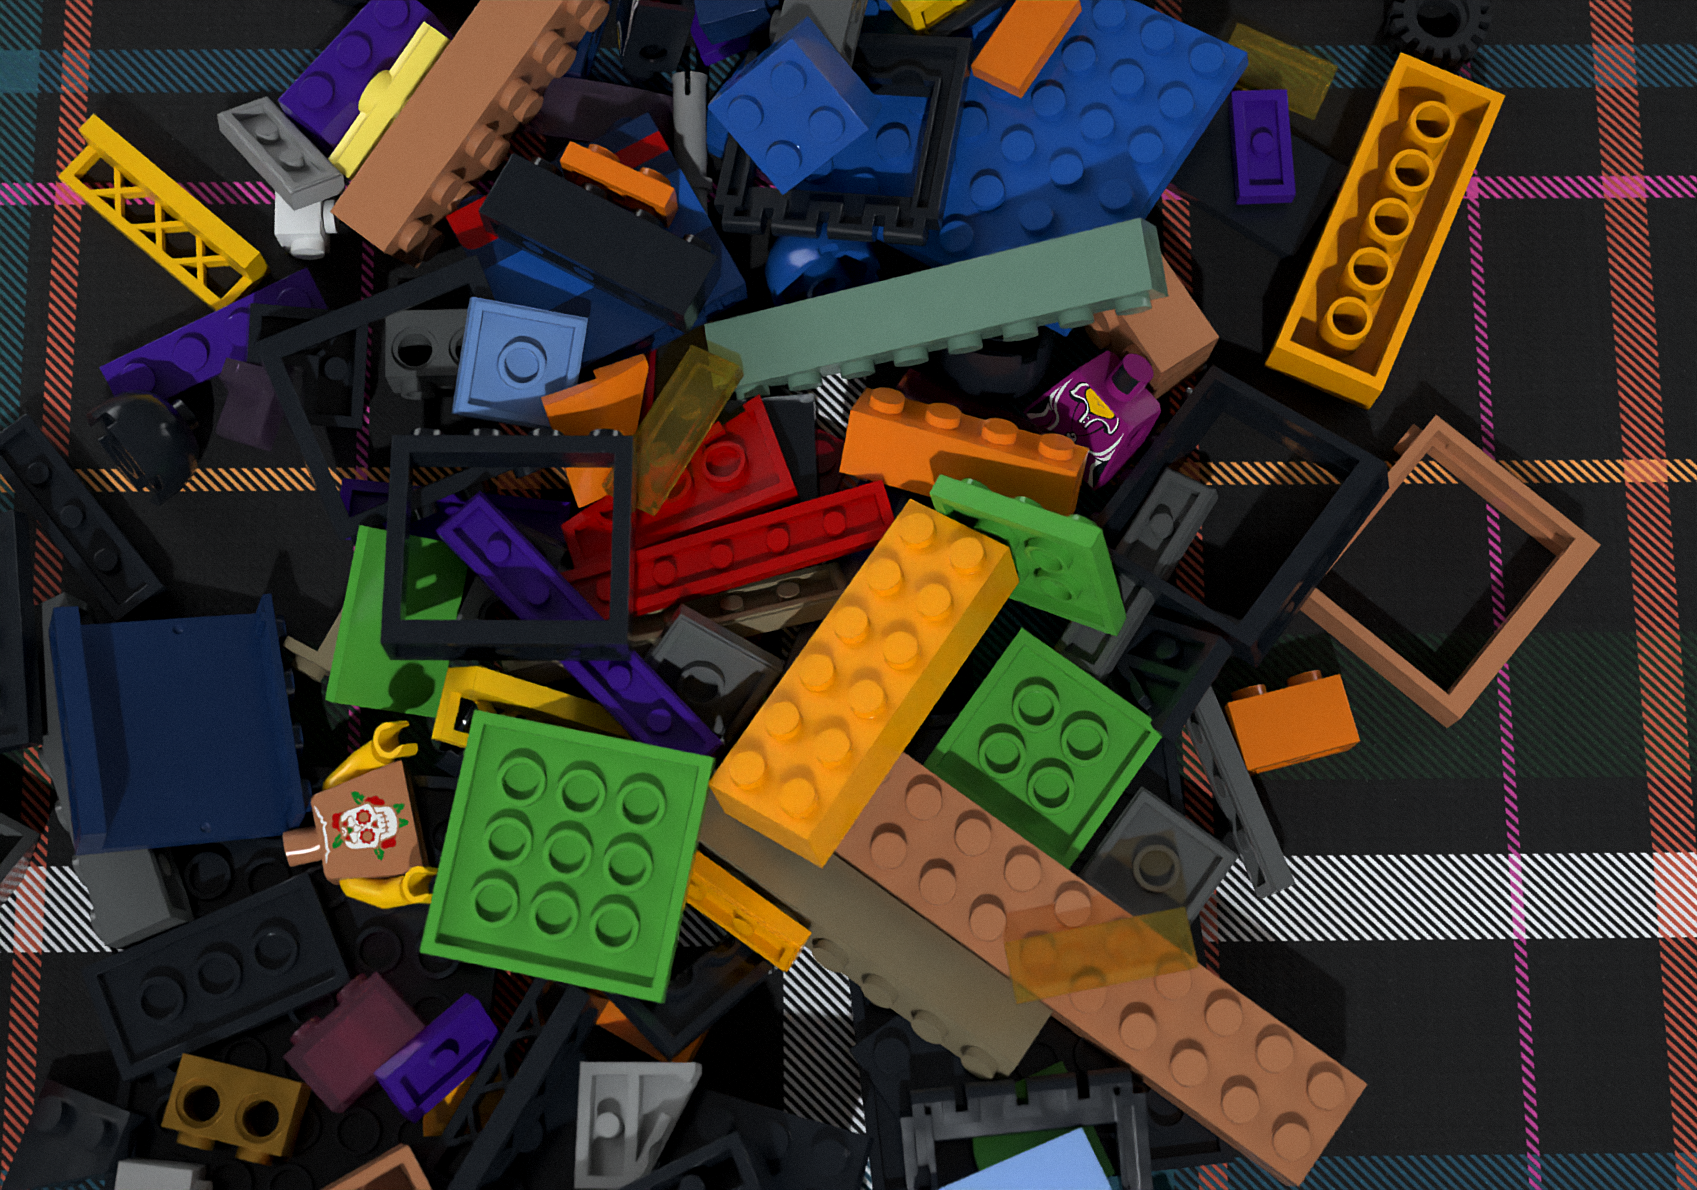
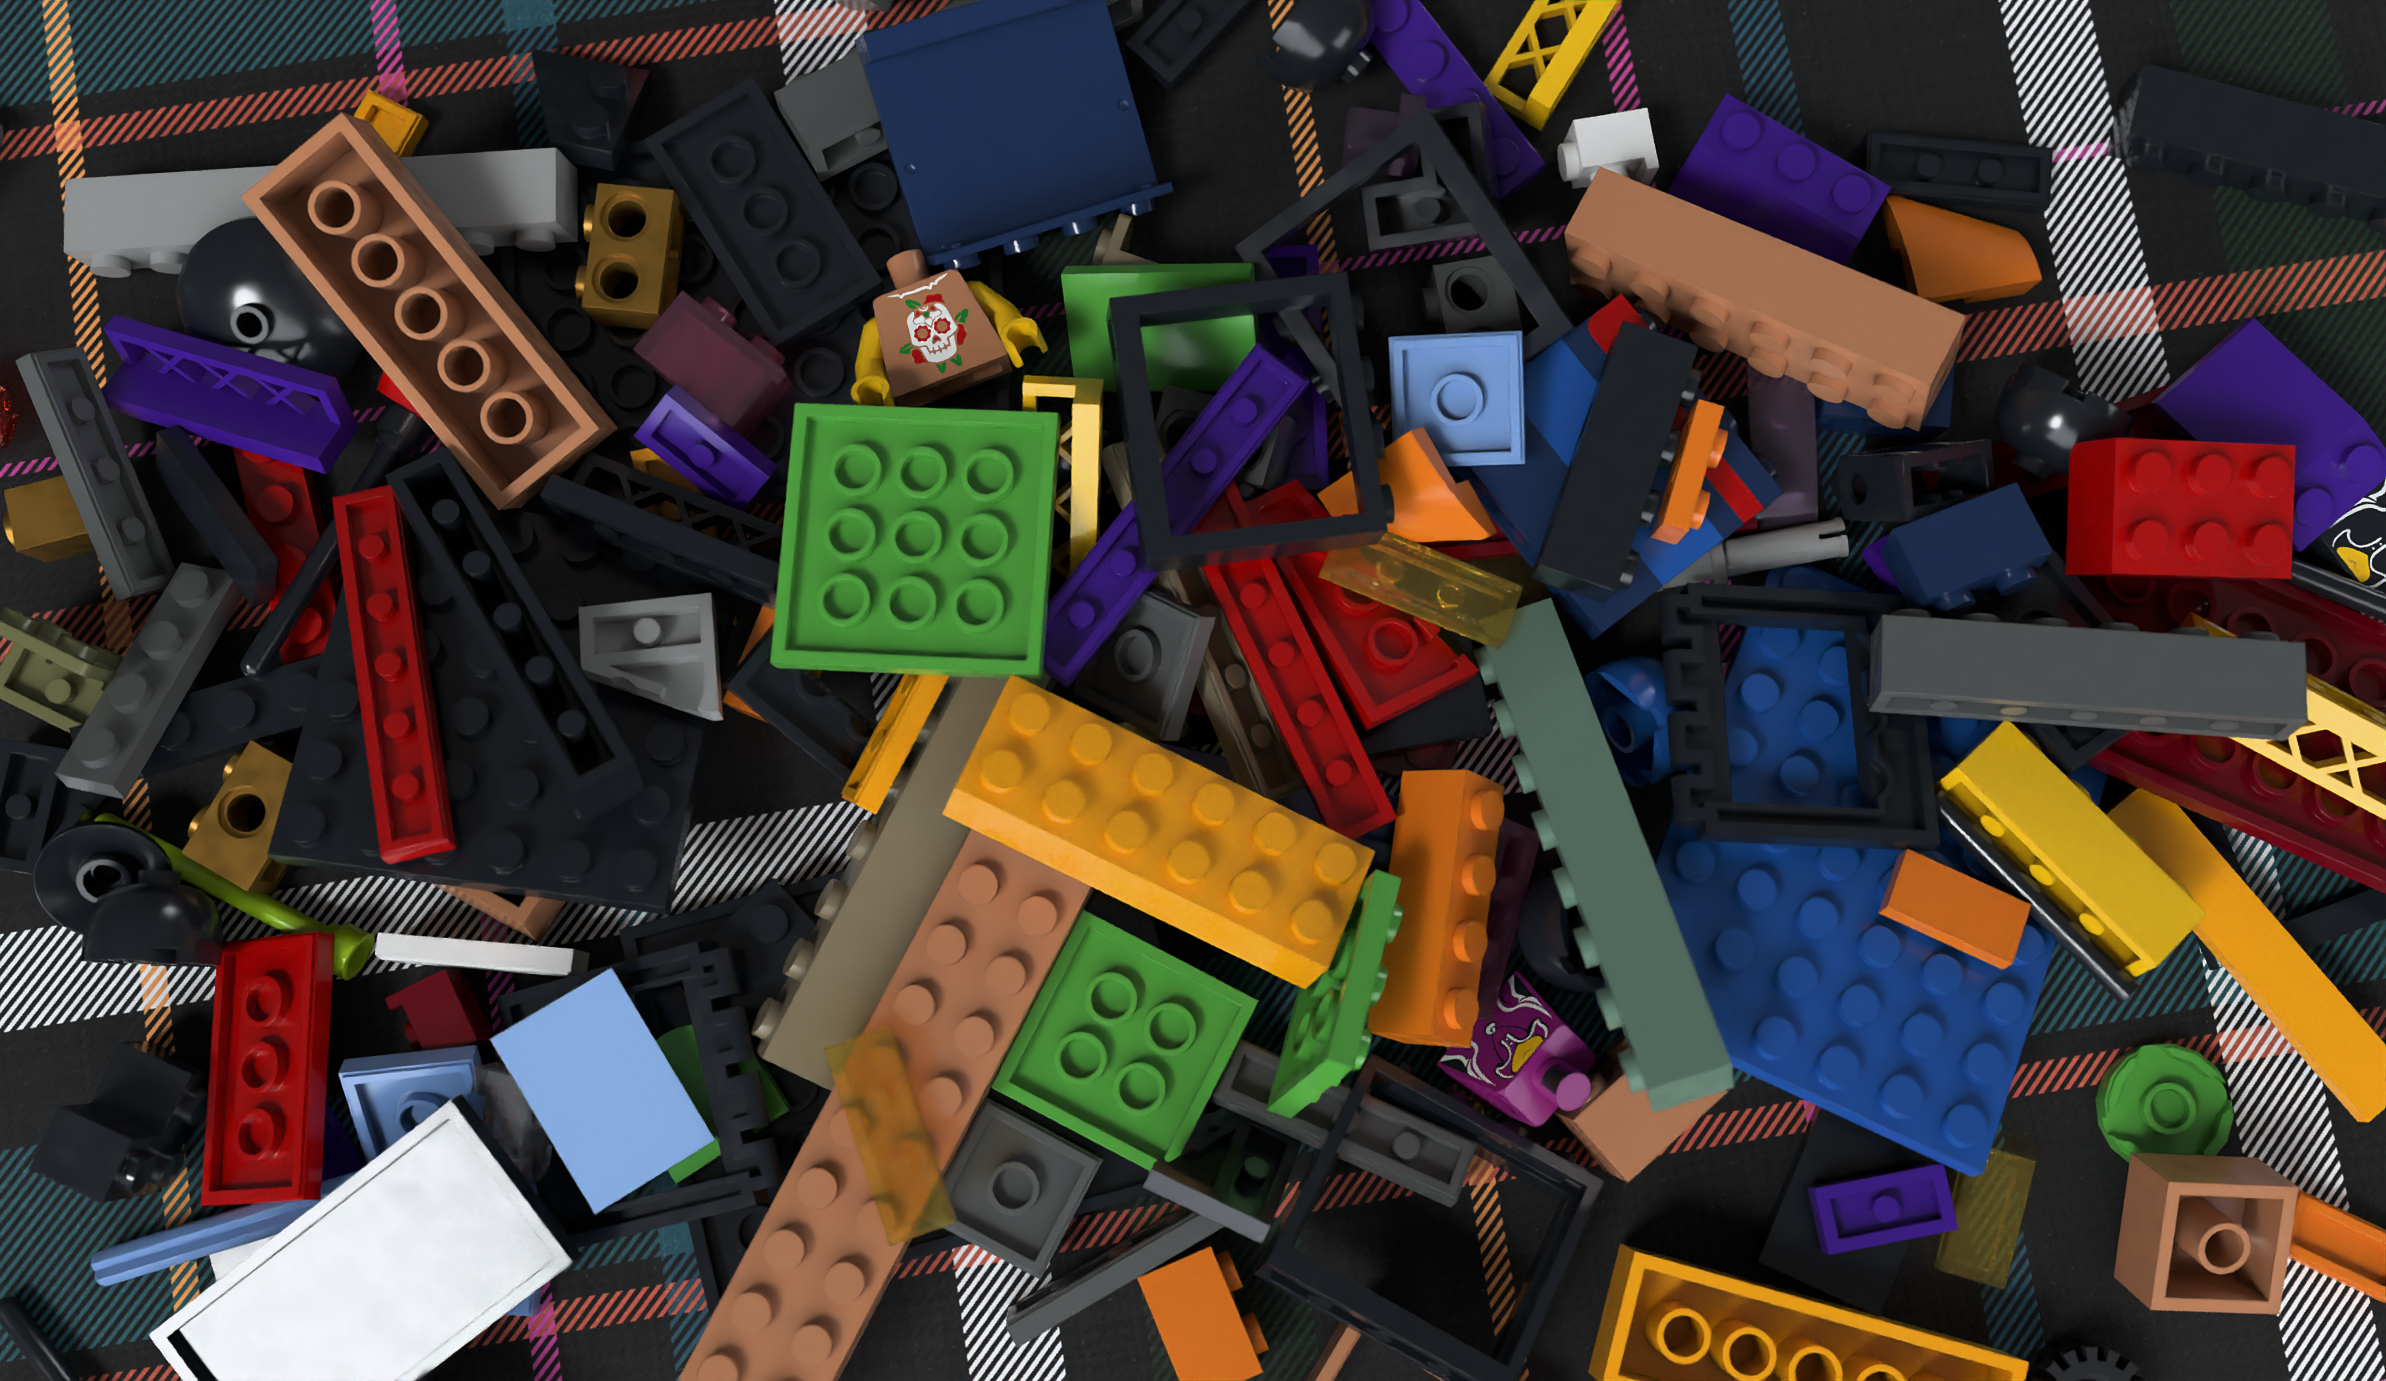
camera: 85 degrees right, 5 degrees up
(281, 153) = (1666, 110): light grey tile -> none
(386, 98) = (1748, 204): light yellow piece -> none
(795, 106) = (1813, 651): blue brick -> none

